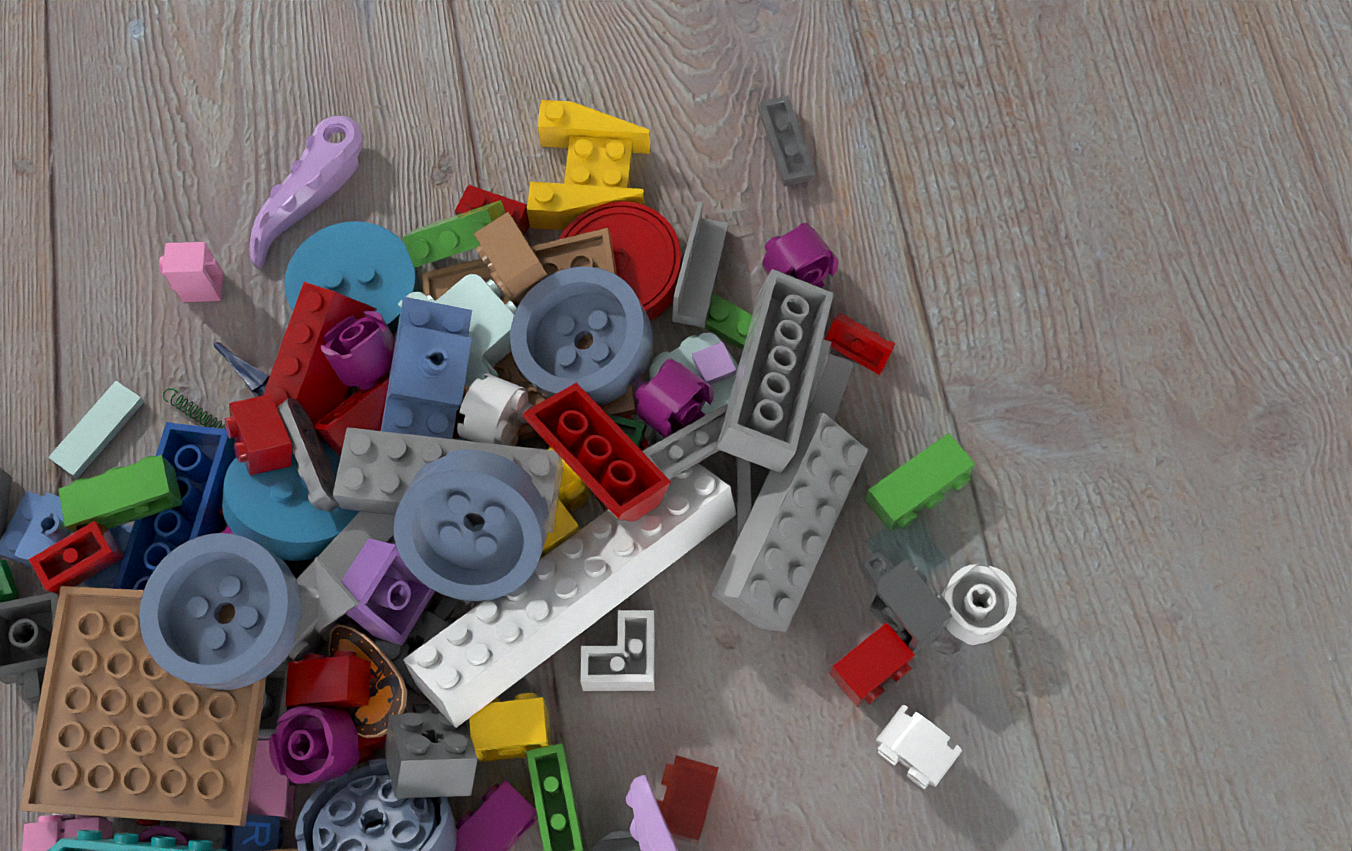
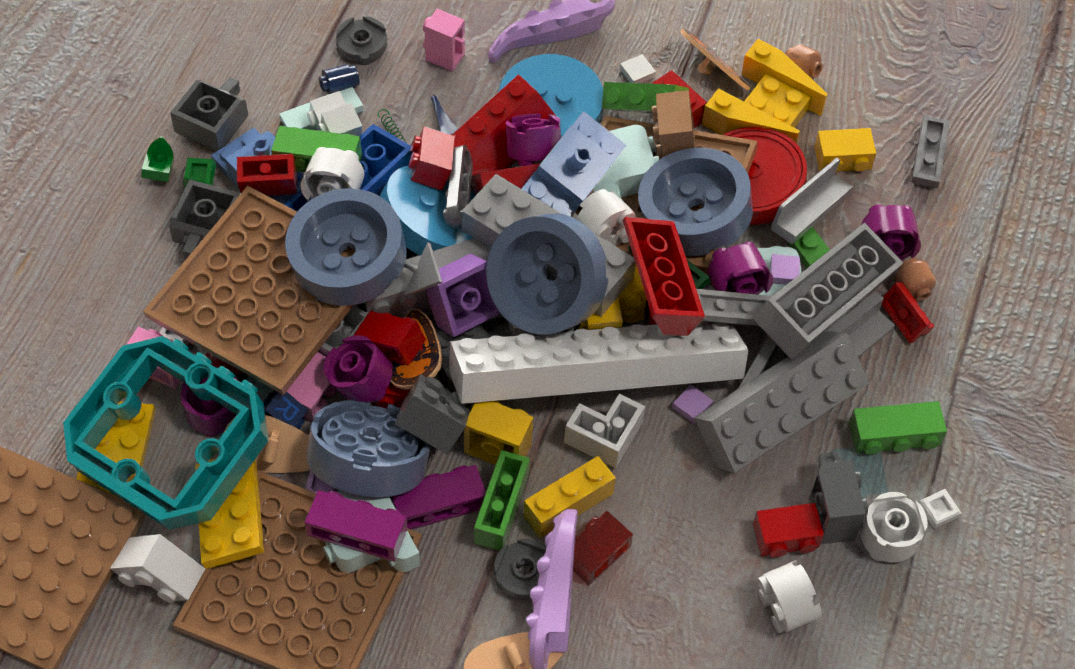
camera: 25 degrees right, 10 degrees down
(95, 379) = (339, 78): none -> dark blue brick
(104, 330) = (364, 51): none -> dark grey plate
(117, 437) = (334, 115): none -> white brick
(156, 523) = (330, 171): none -> white brick
(427, 197) = (637, 69): none -> white tile
(503, 146) = (712, 60): none -> light nougat shield
(603, 98) = (806, 59): none -> nougat head
(625, 757) = (576, 490): none -> yellow brick
(695, 569) = (692, 403): none -> lavender tile
(702, 179) = (851, 146): none -> yellow brick
(851, 298) = (917, 278): none -> nougat head
(1007, 550) = (940, 508): none -> white tile

